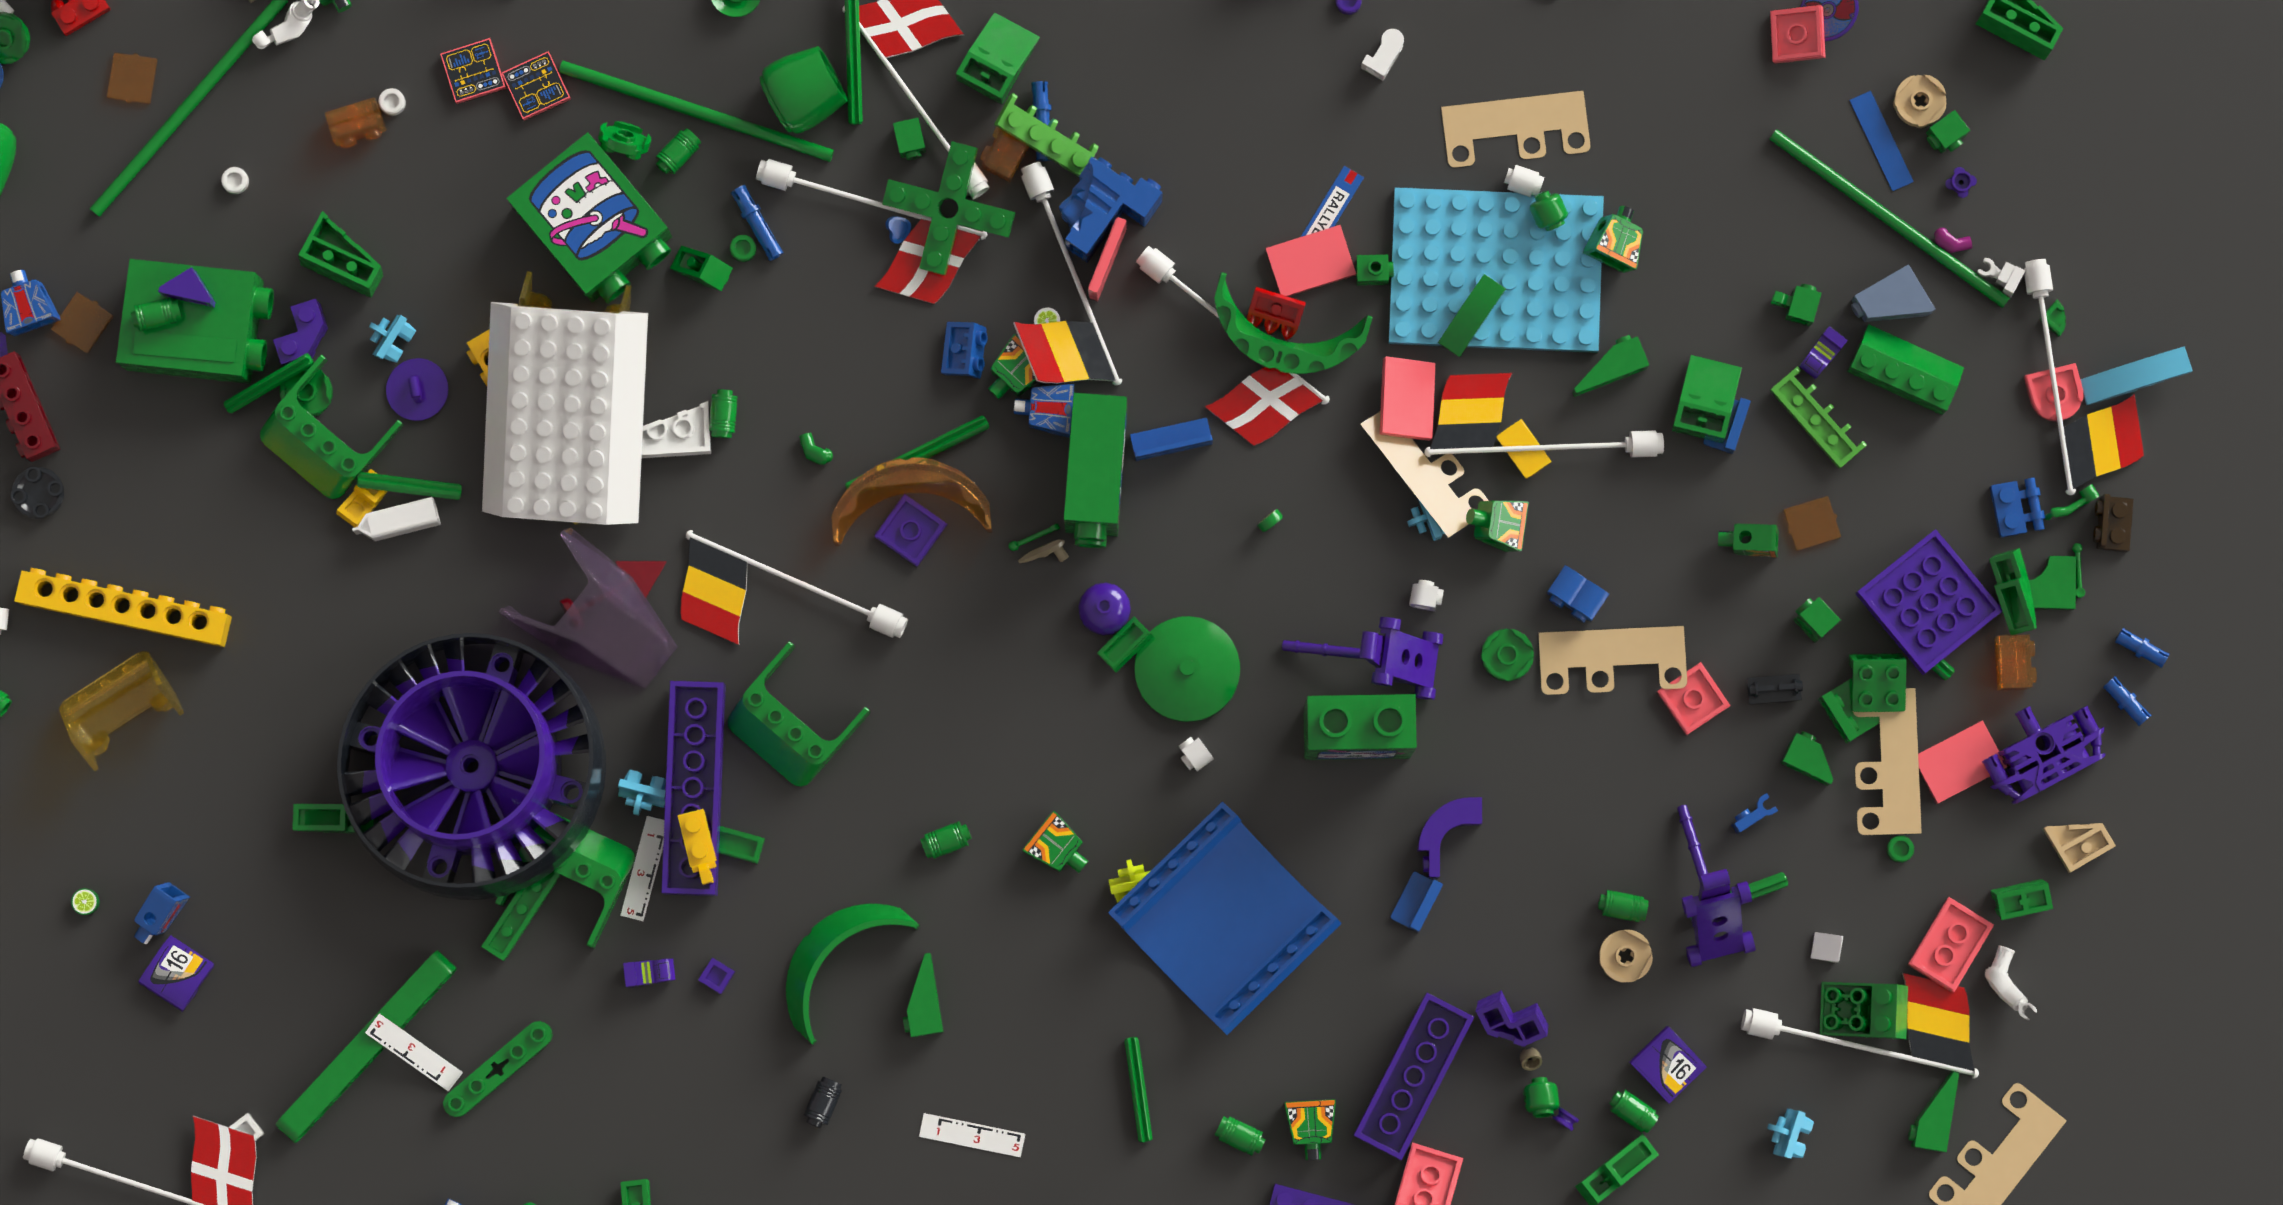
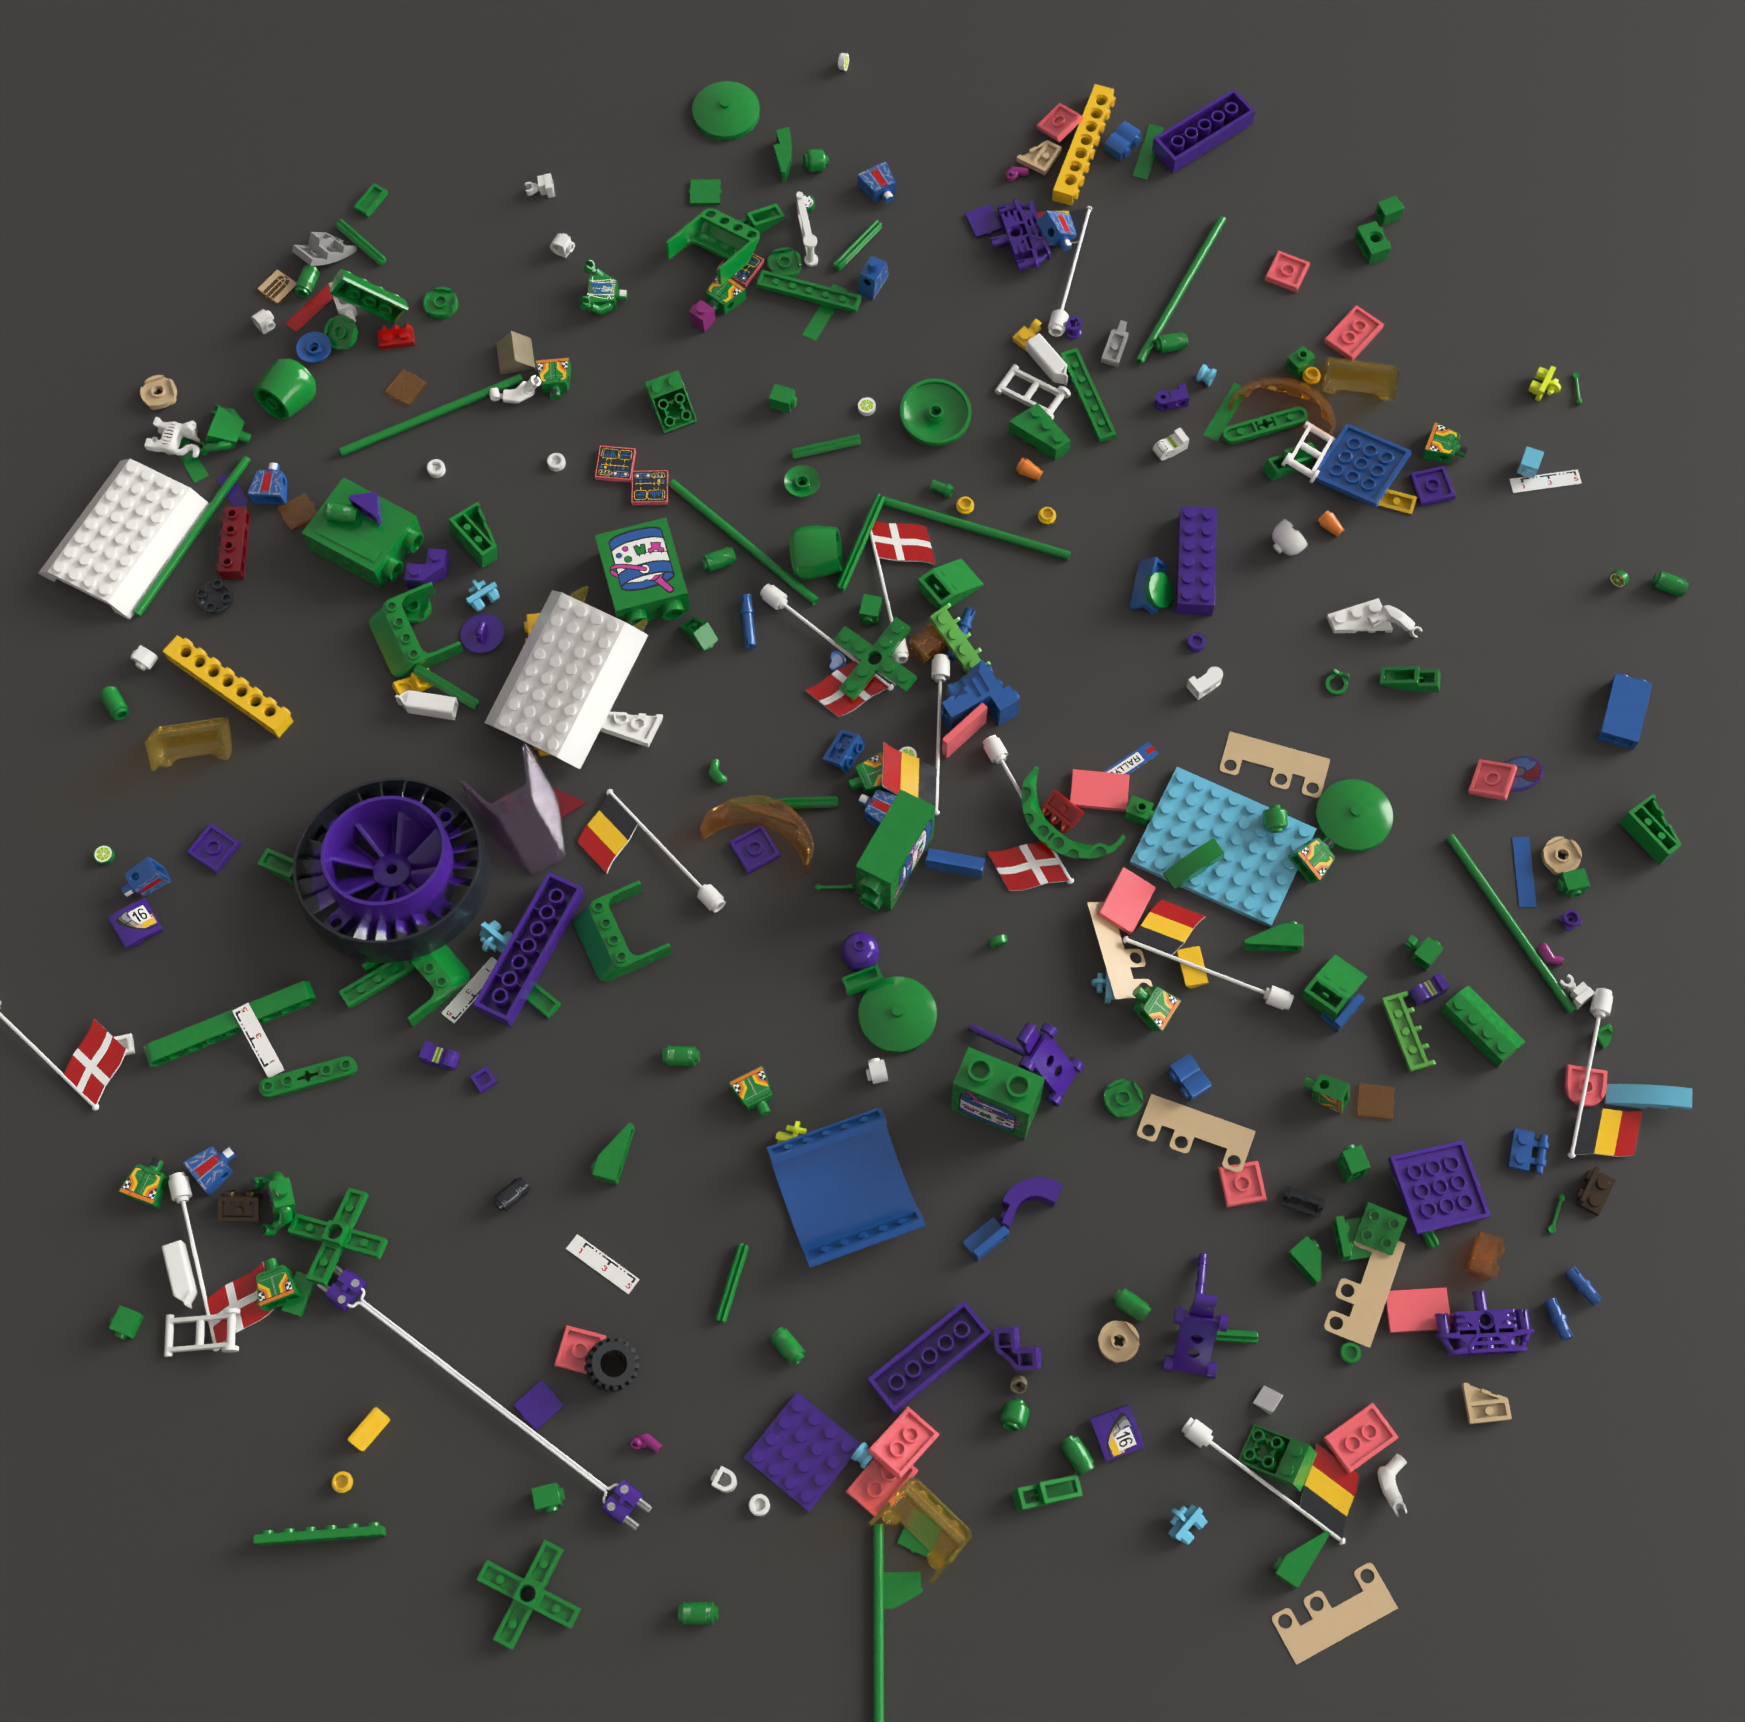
camera: 25 degrees right, 15 degrees down
(221, 831) = (213, 848): none -> dark purple tile
(268, 383) = (390, 589): green axle -> none
(356, 122) = (527, 463): clear orange brick -> none
(624, 139) = (688, 535): green plate -> none
(698, 844) = (512, 982): yellow hinge -> none
(723, 414) = (668, 726): green head -> none
(743, 248) = (731, 633): green tile -> none
(818, 945) = (561, 1088): green windscreen -> none
(1045, 550) = (838, 898): dark tan bar -> none
(1311, 1124) = (841, 1360): torso -> none
(1425, 595) = (1083, 1034): white plate -> none
(1523, 181) = (1265, 796): white brick -> none
(1565, 1119) = (1025, 1438): dark purple bush -> none
(1642, 156) = (1354, 815): none -> green dish
(1746, 818) = (1246, 1282): blue plate -> none
(1893, 298) = (1492, 974): sand blue slope -> none
(2014, 591) = (1504, 1205): green slope -> none
(2022, 899) = (1427, 1427): green hinge -> none
(2056, 584) = (1533, 1217): green tile -> none
(2088, 494) = (1583, 1163): green piece -> none

